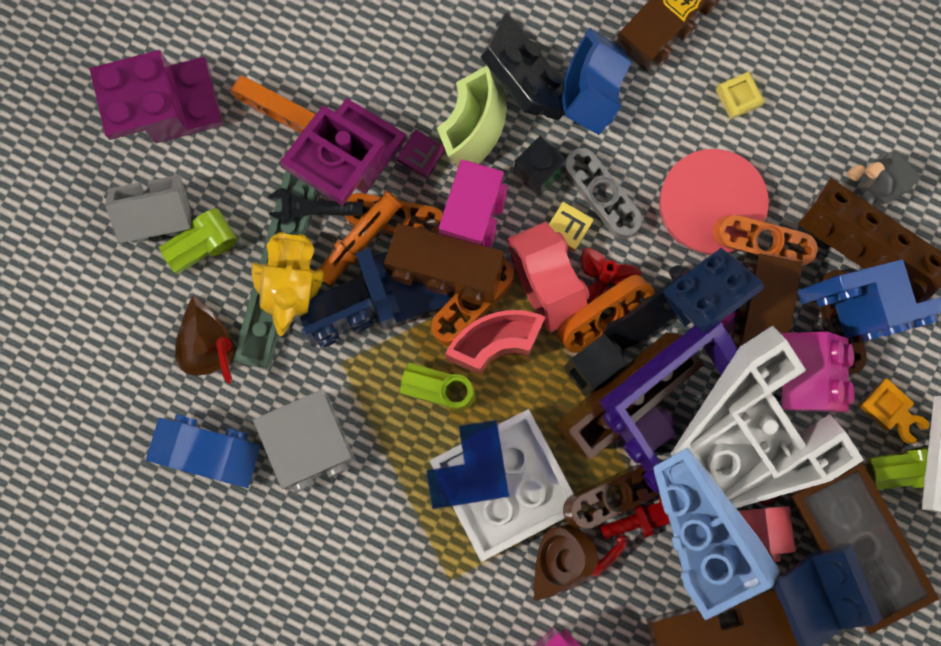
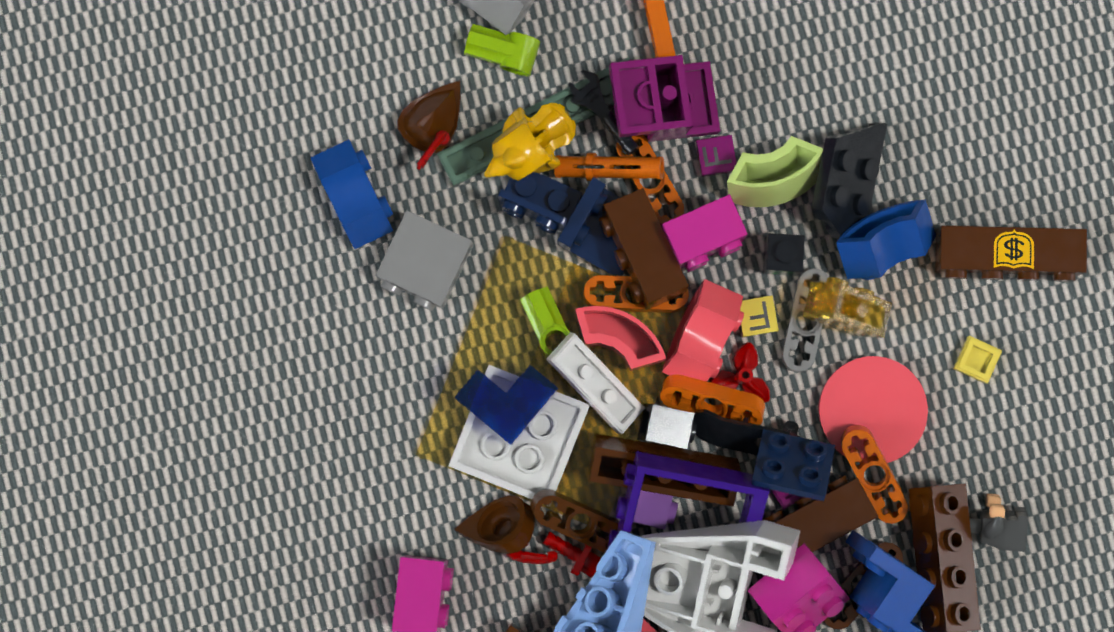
camera: 50 degrees right, 5 degrees up
(515, 389) = (595, 383): none -> white tile
(623, 151) = (847, 308): none -> clear yellow brick

